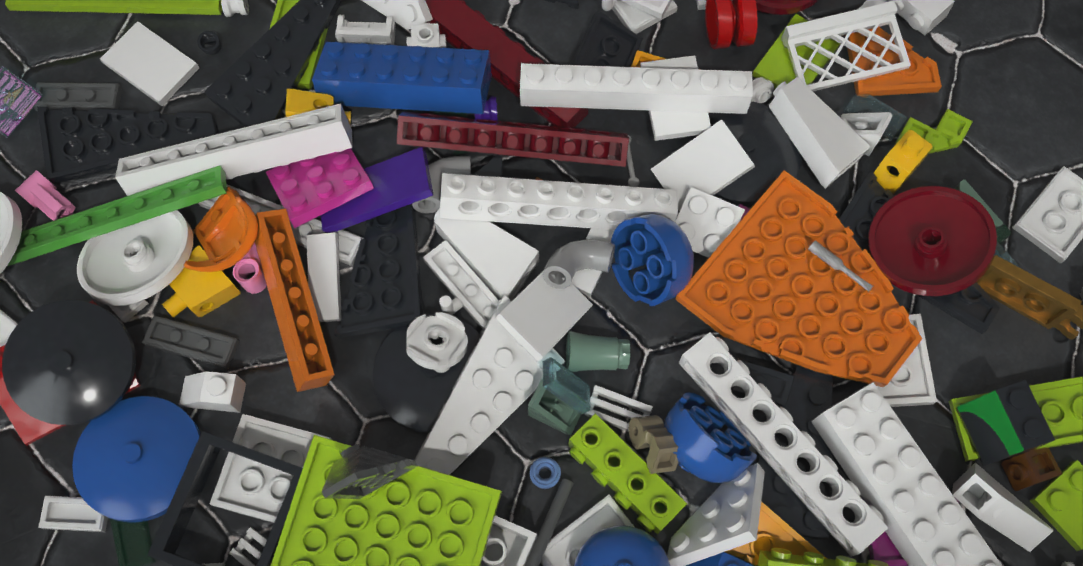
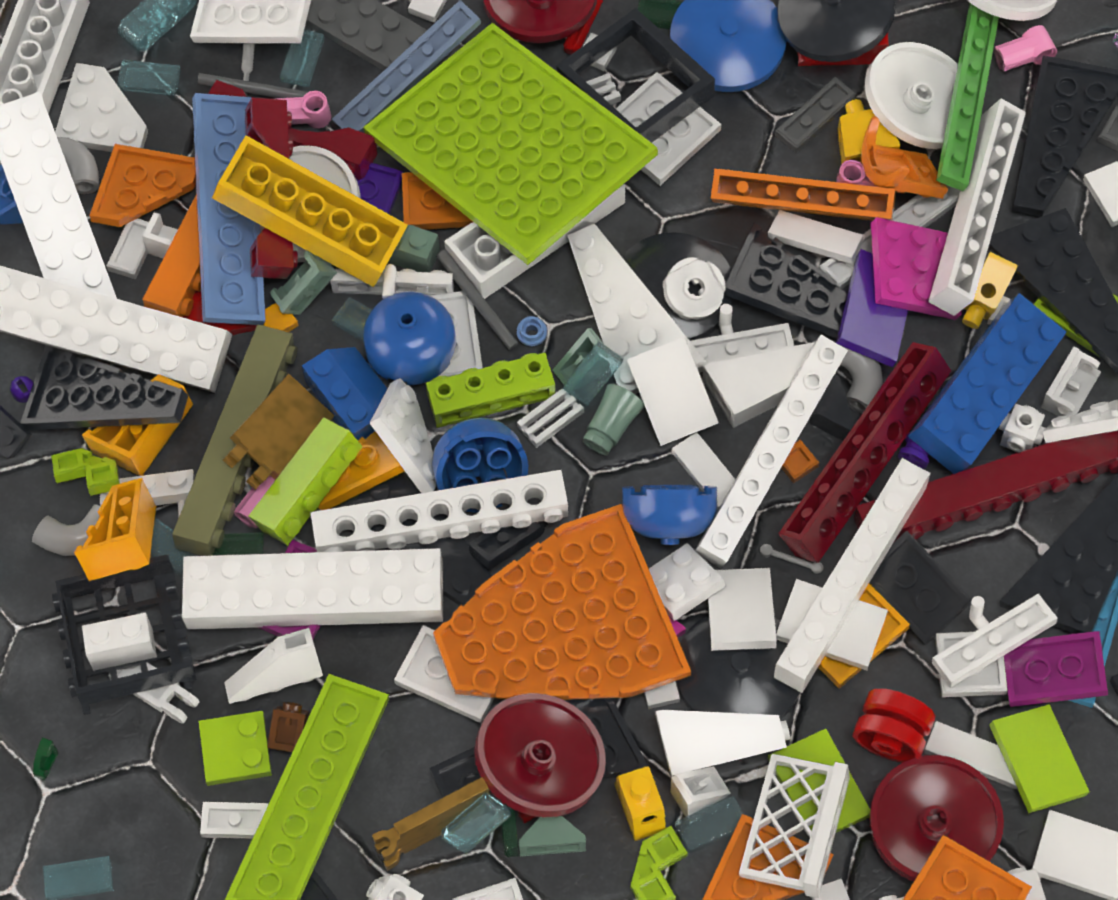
camera: 120 degrees right, 5 degrees down
(213, 392) = (754, 112): white slope -> none
(364, 471) = (597, 150): dark grey wedge -> none
(576, 257) = (710, 442): light grey cylinder -> none
(650, 433) = (513, 416): dark tan leg -> none
(762, 90) = (798, 719): white plate -> none
(836, 263) = (568, 654): light grey piece -> none
(1005, 423) = (337, 713): black slope -> none

